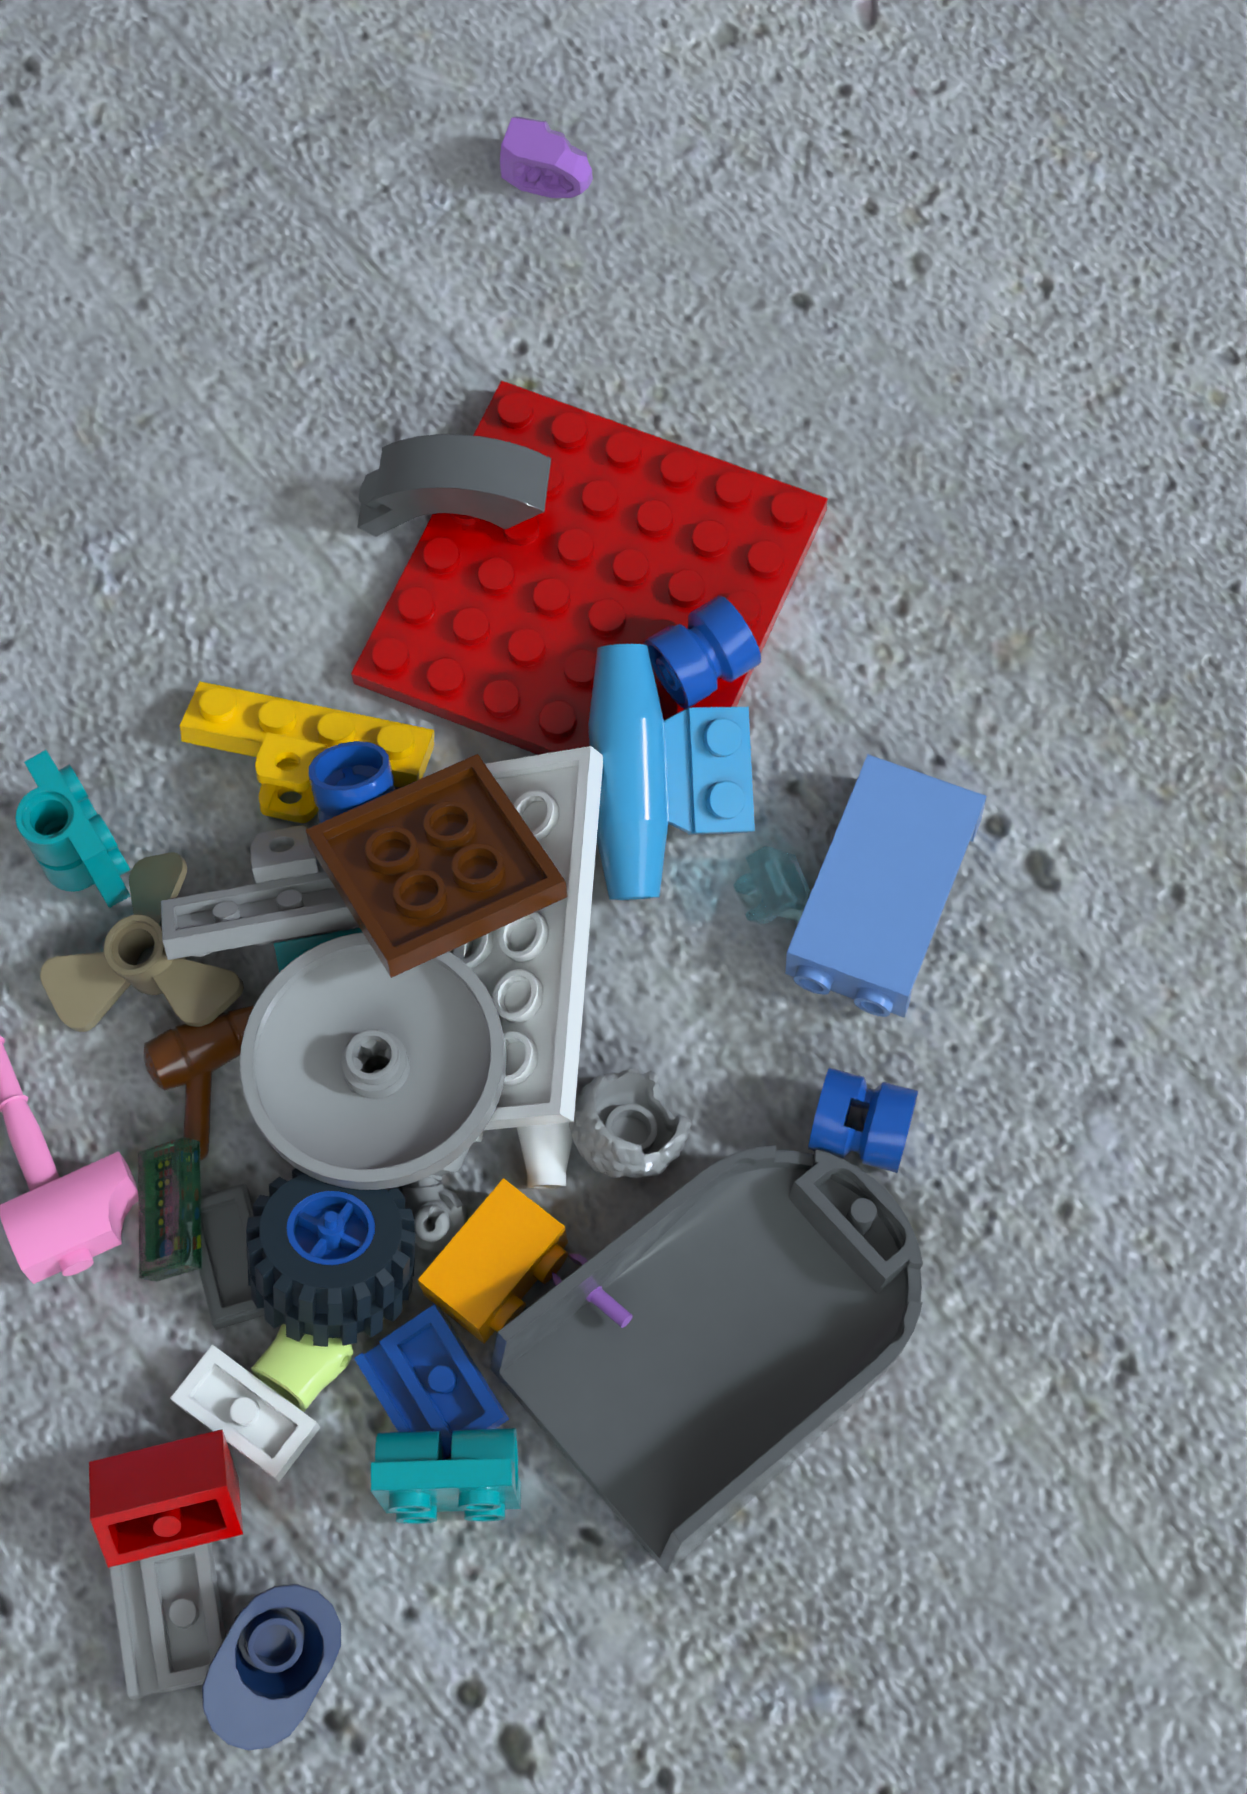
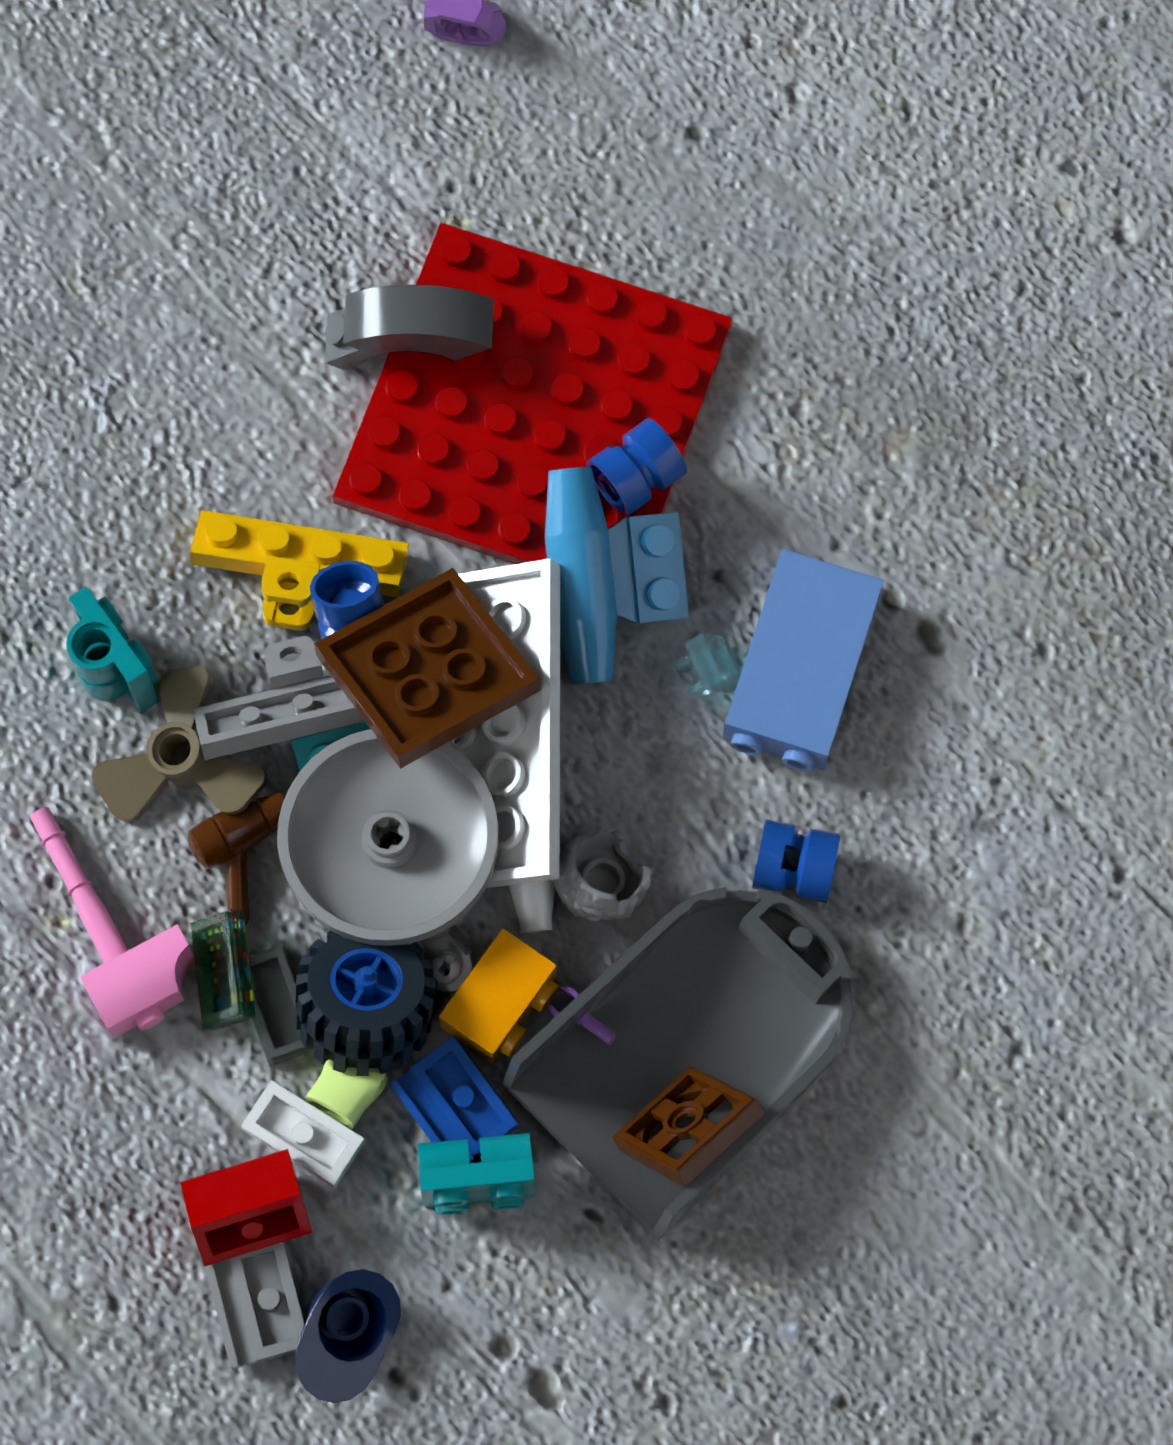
camera: 10 degrees left, 5 degrees up
(714, 1395) = (677, 1104): none -> reddish brown piece

